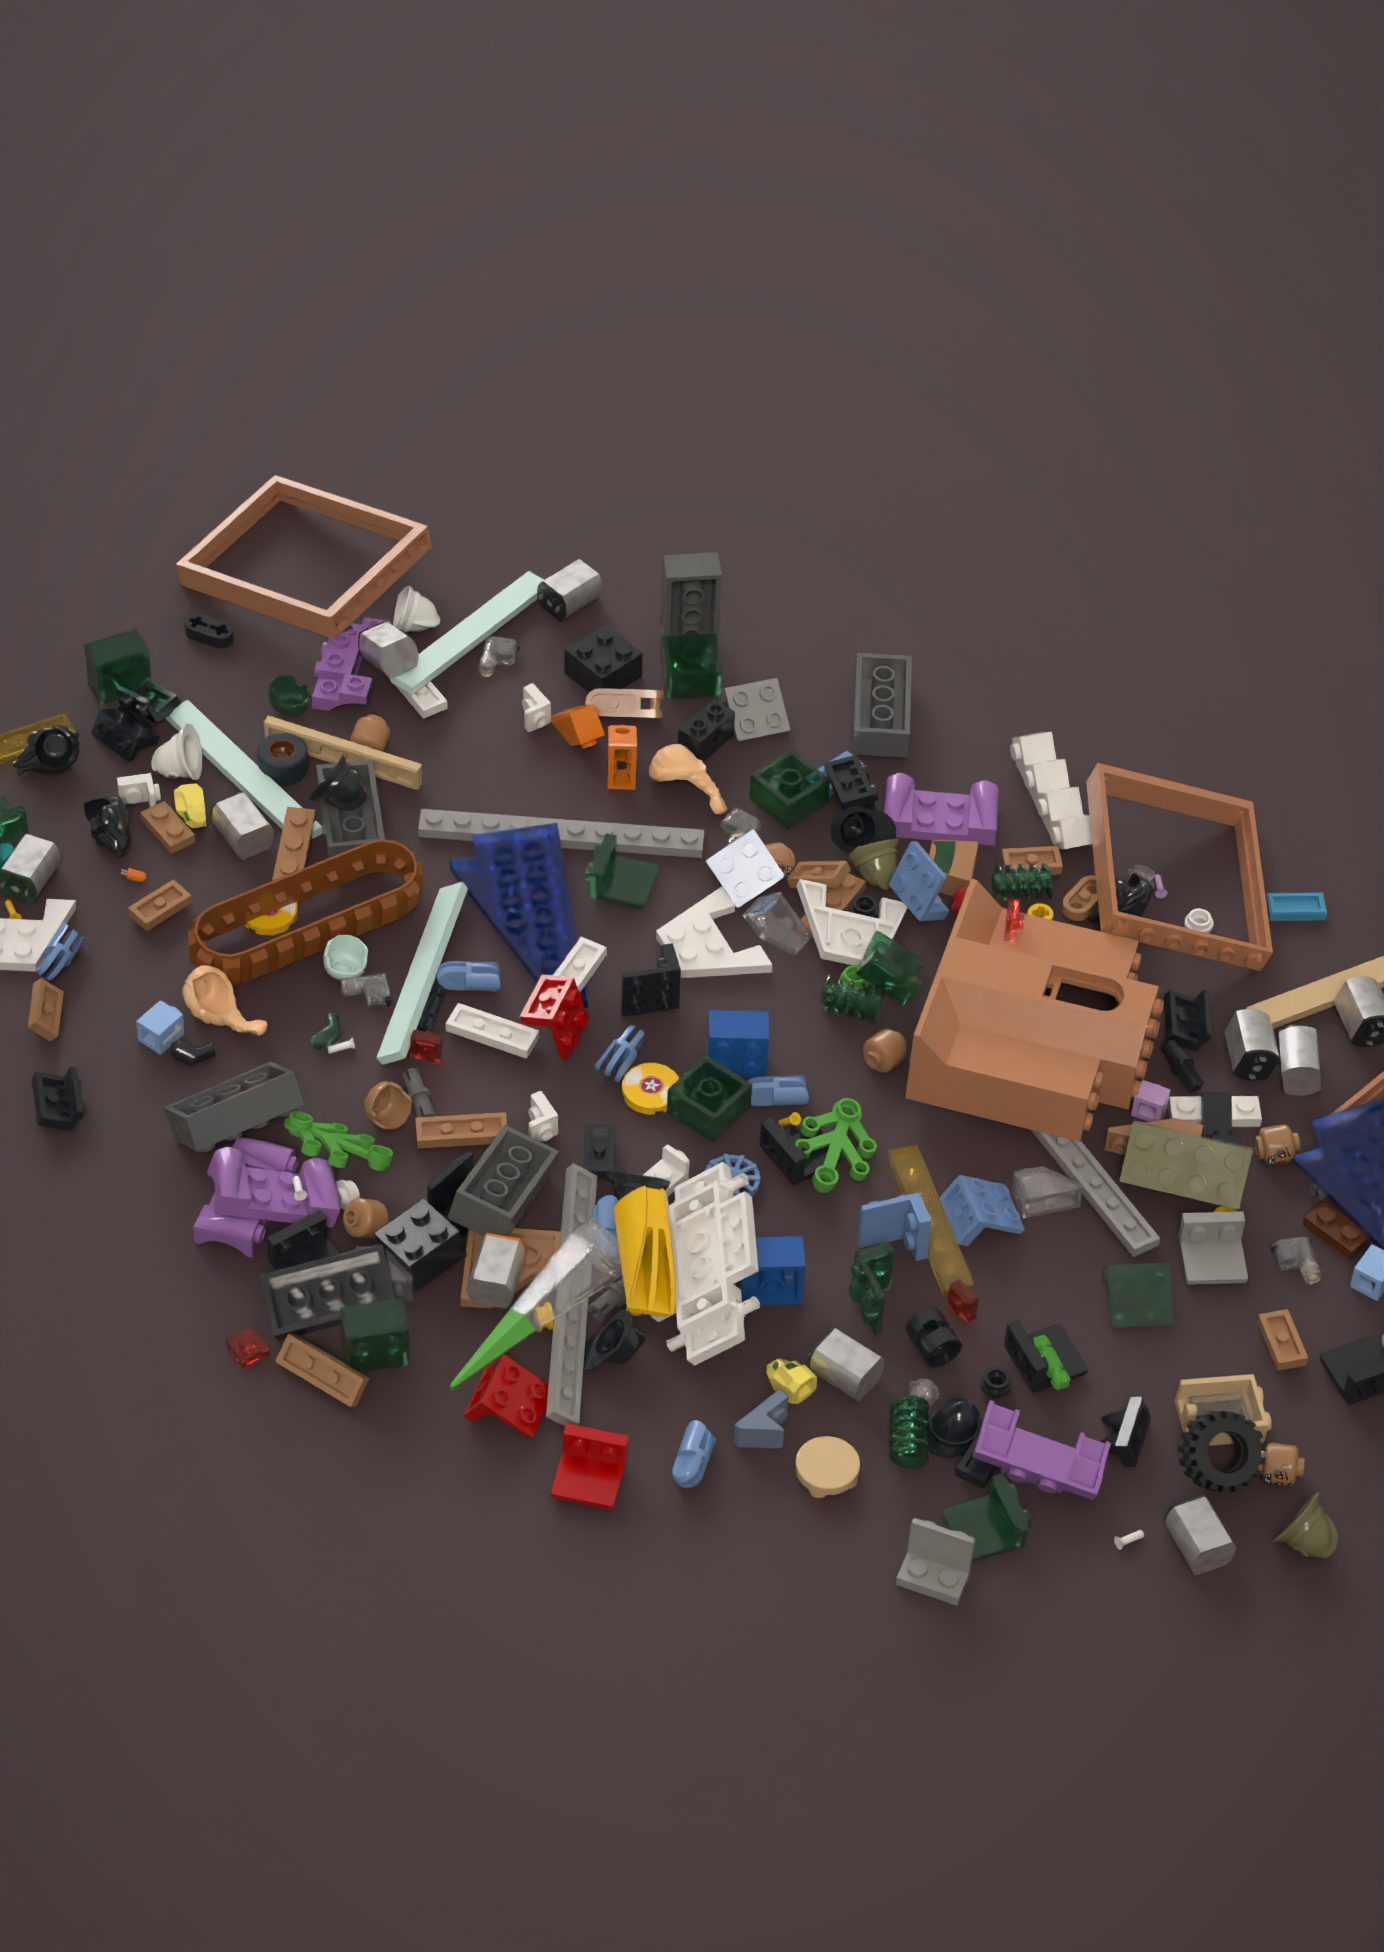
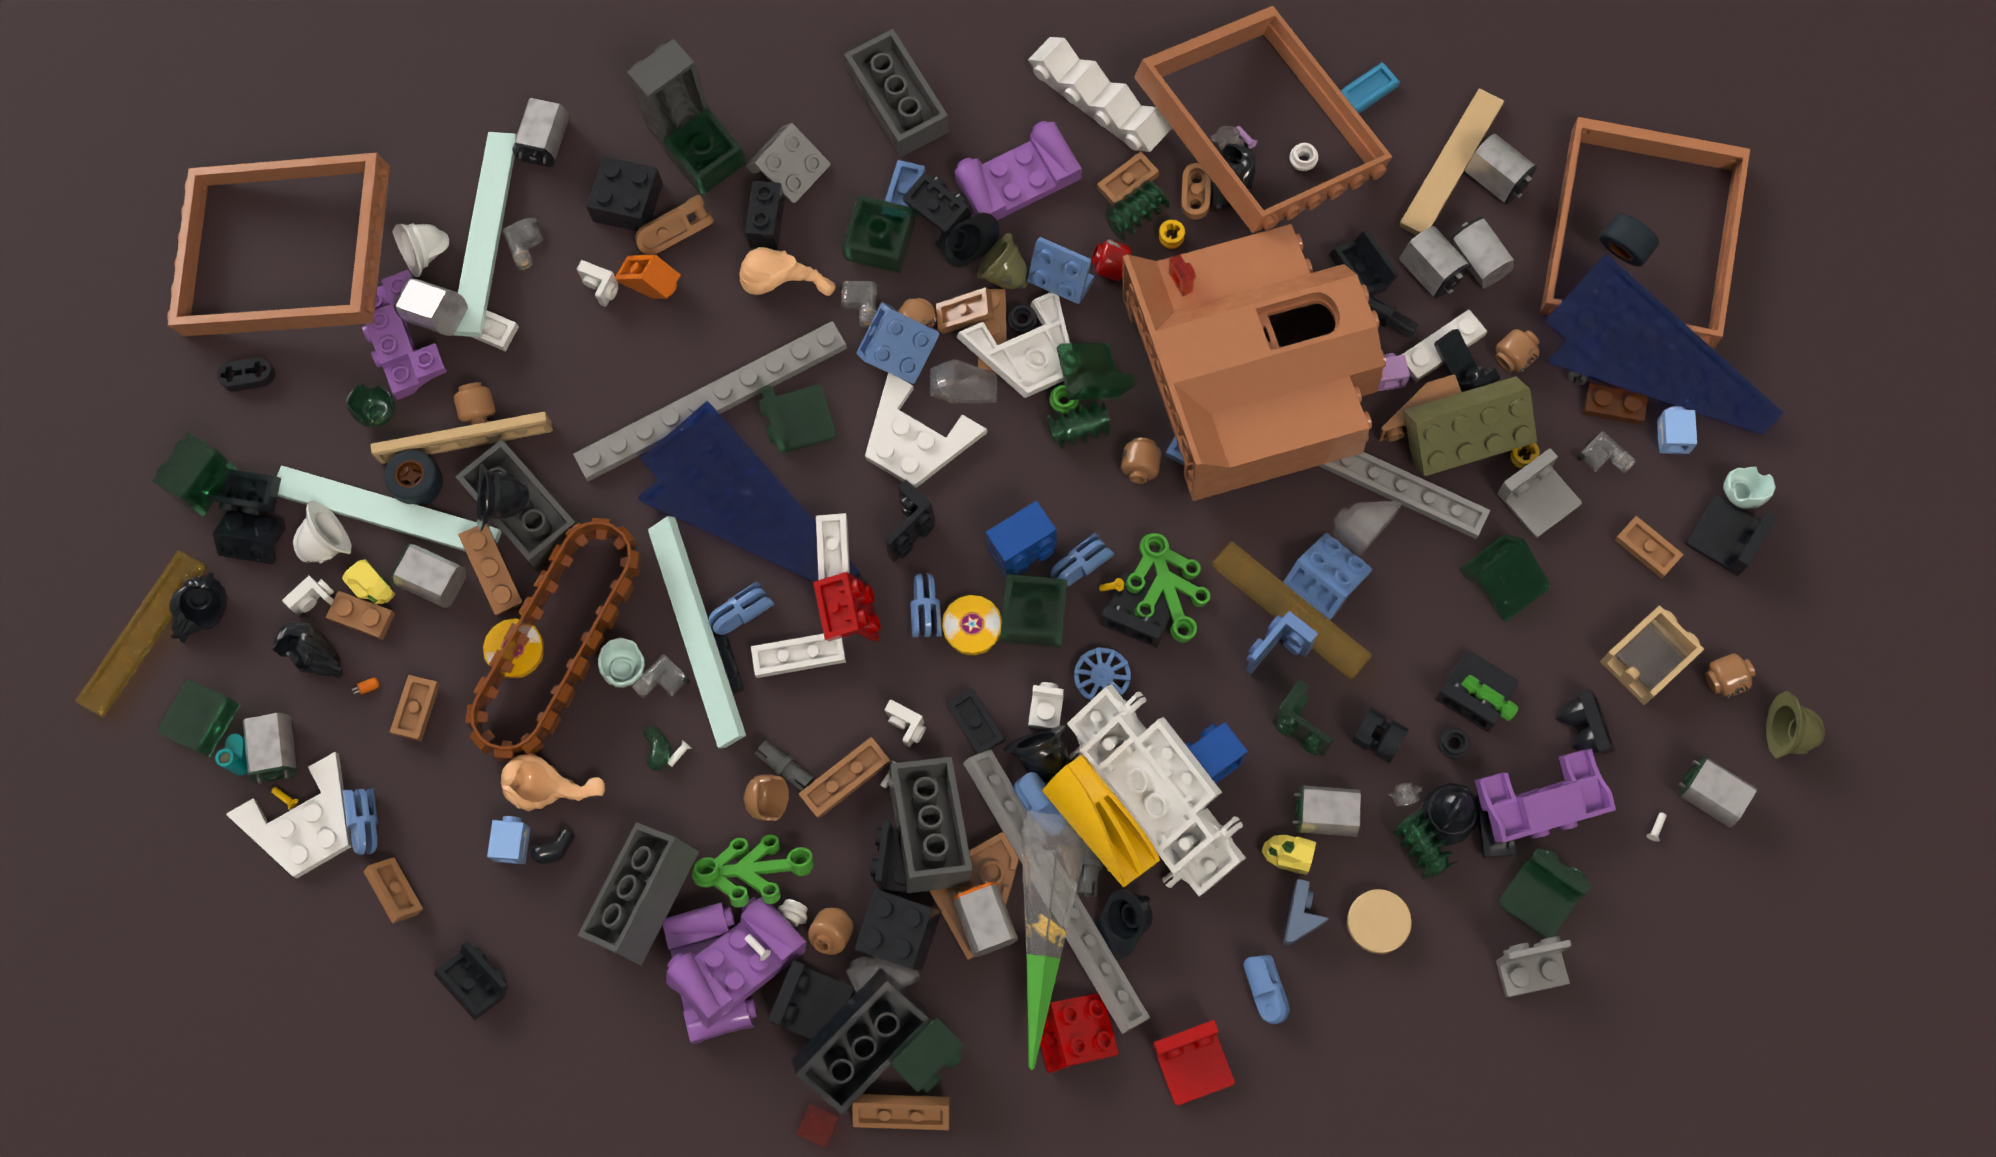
camera: 25 degrees left, 25 degrees up
(426, 1046) = (754, 708): clear red plate -> none
(622, 747) = (706, 280): orange torso -> none
(956, 861) = (1066, 226): medium nougat torso -> none
(962, 1301) = (1376, 681): clear red plate -> none
(1246, 1458) = (1690, 704): black tyre -> none

